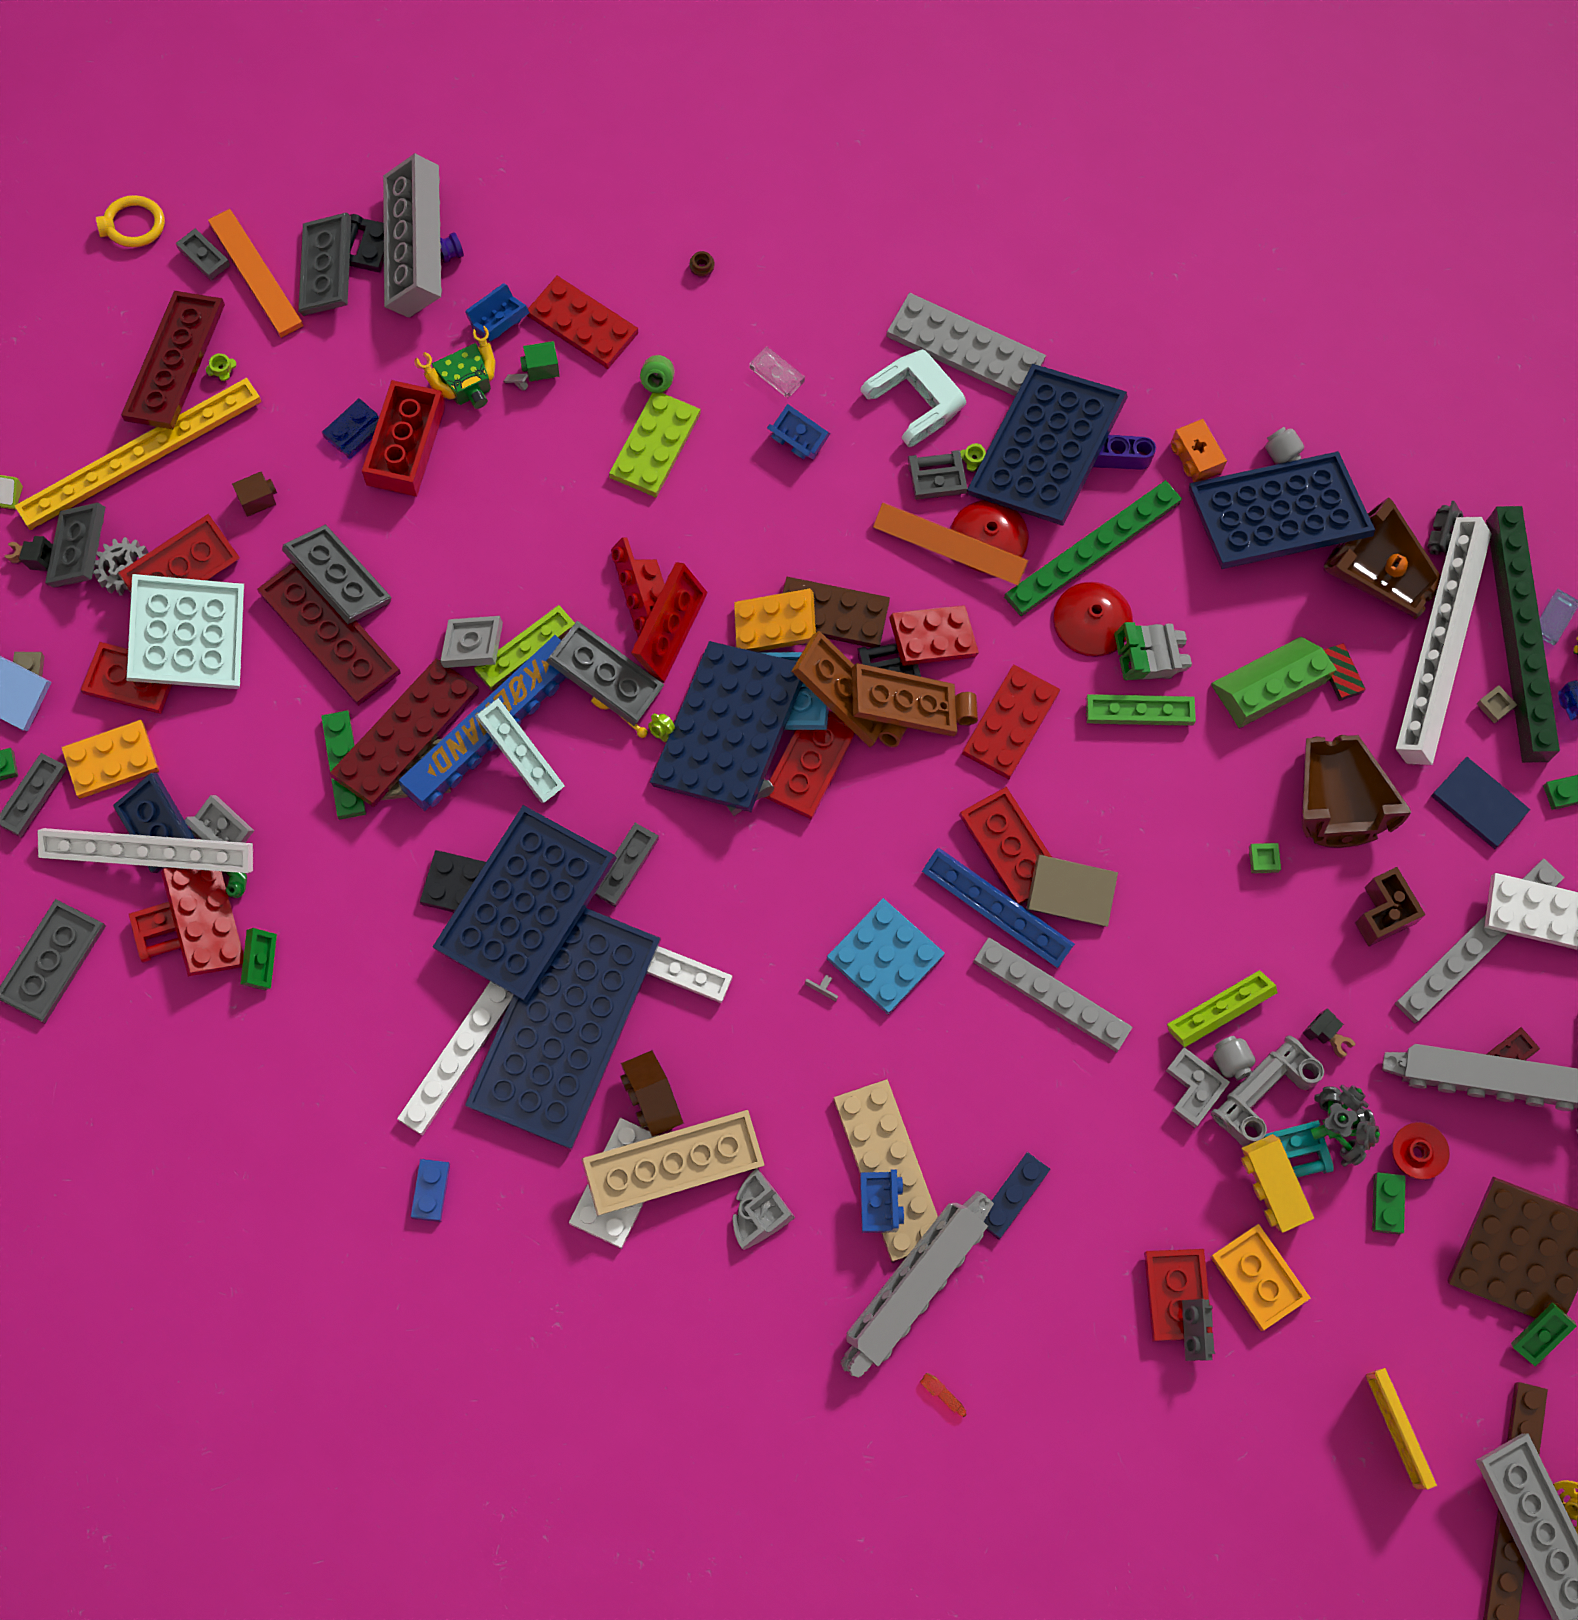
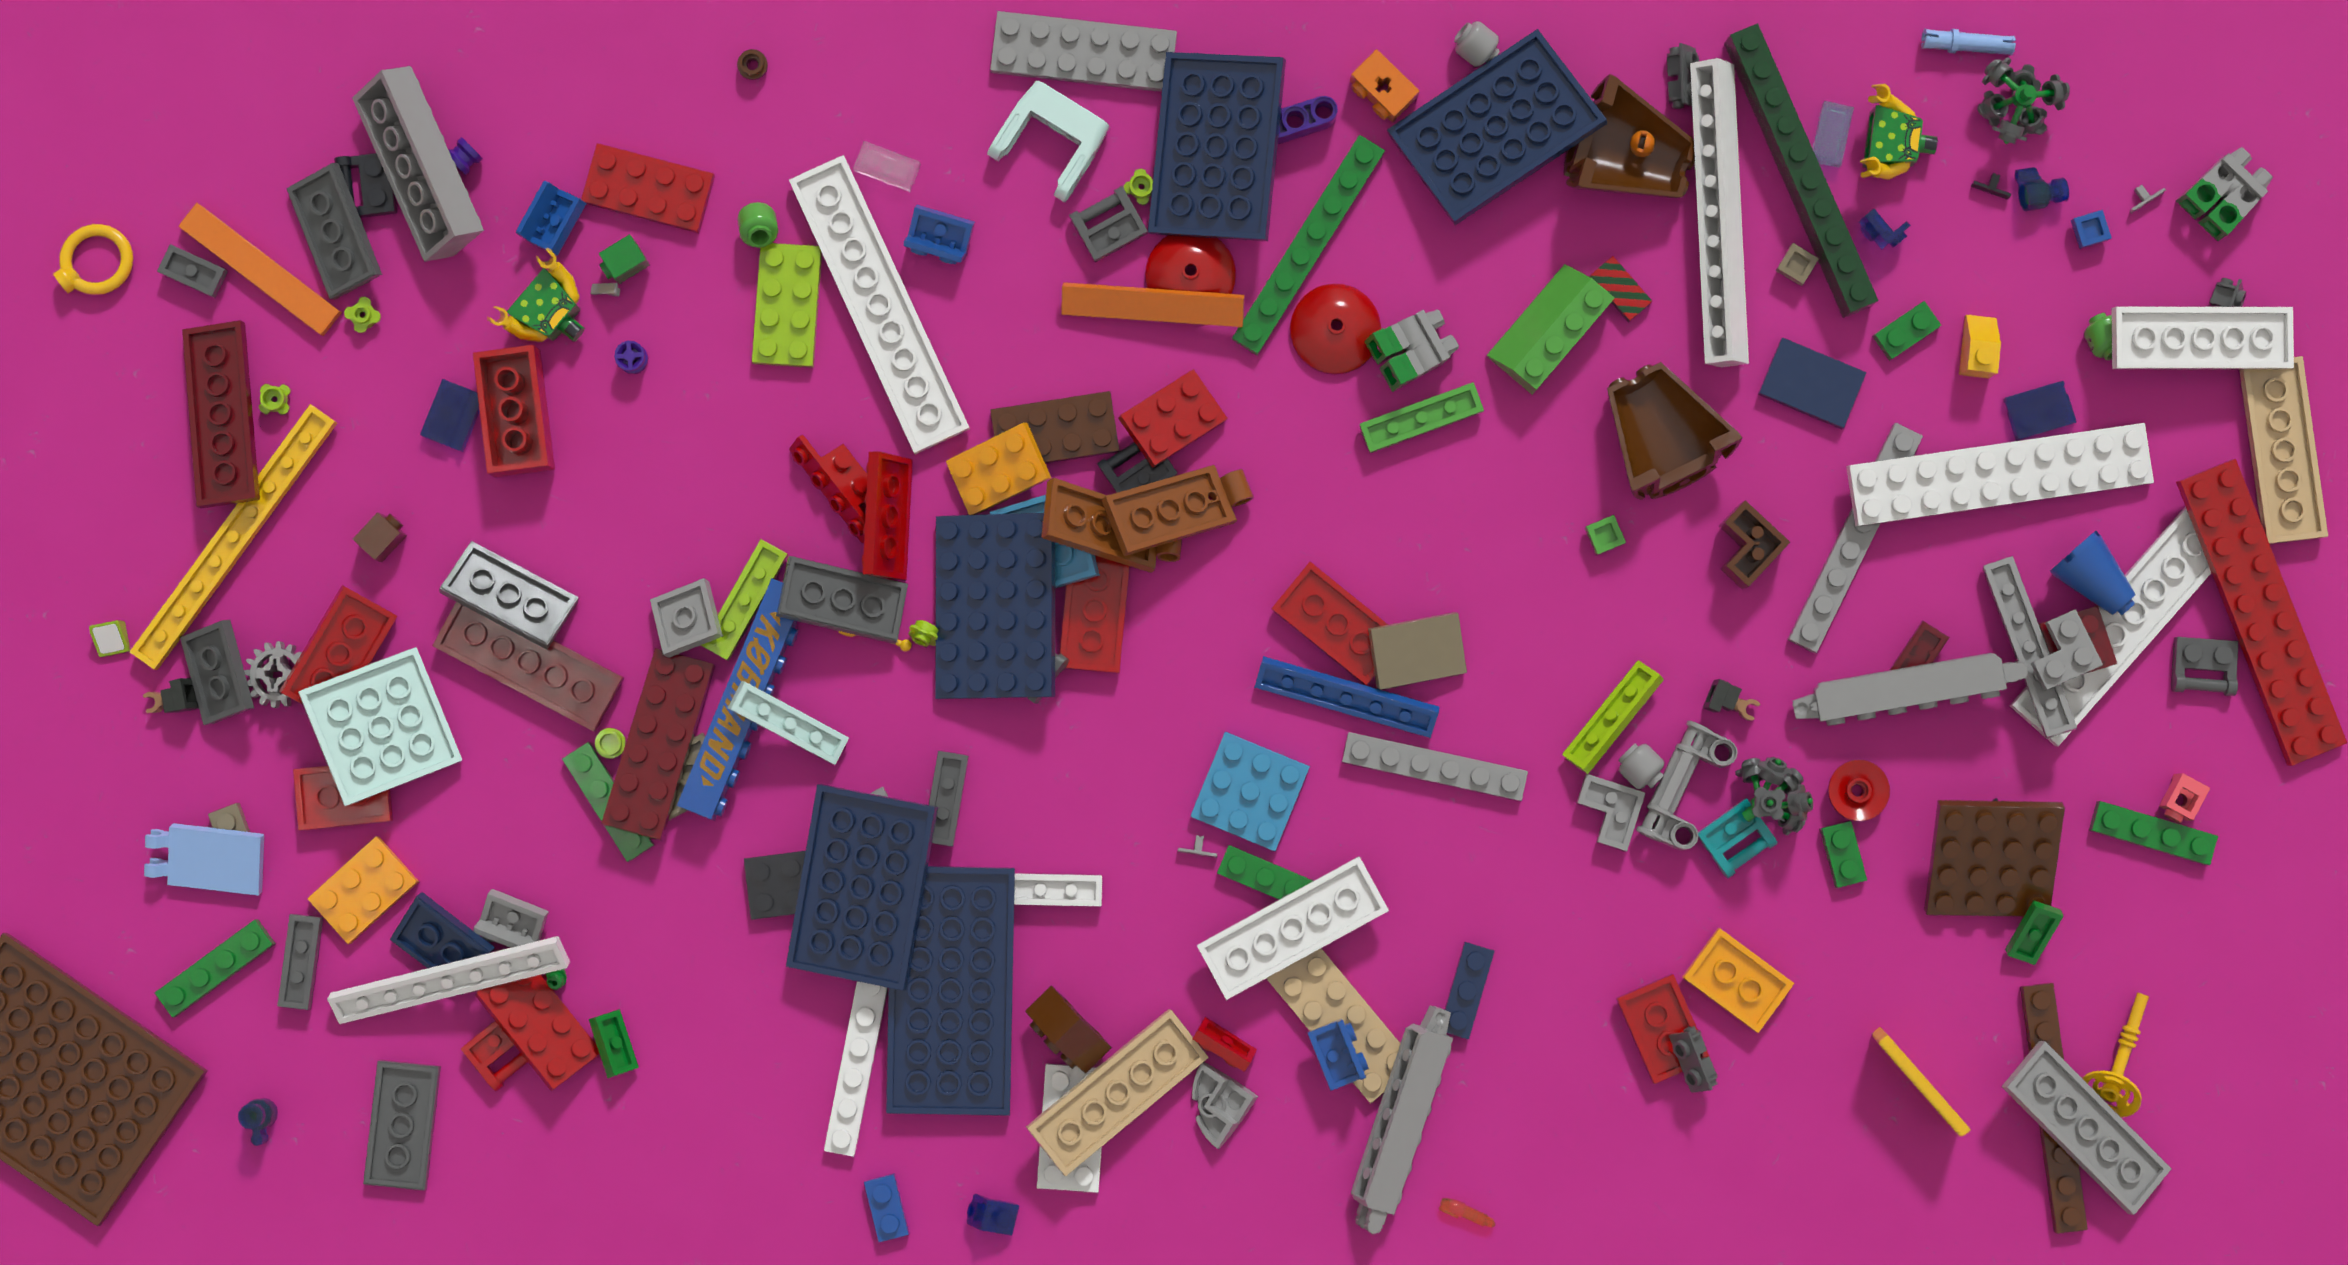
camera: 15 degrees left, 15 degrees up
(318, 337) = (371, 315): none -> lime plate
(365, 718) = (610, 743): none -> lime plate
(512, 429) = (630, 351): none -> dark purple wheel
(520, 1231) = (992, 1215): none -> clear blue bracket
(729, 469) = (879, 304): none -> white plate
(777, 1152) = (1224, 1044): none -> red plate
(880, 1078) = (1292, 928): none -> white plate
(882, 1041) = (1260, 874): none -> green plate
(1011, 721) = (1289, 482): red plate -> none
(1276, 1183) = (1724, 883): yellow brick -> none

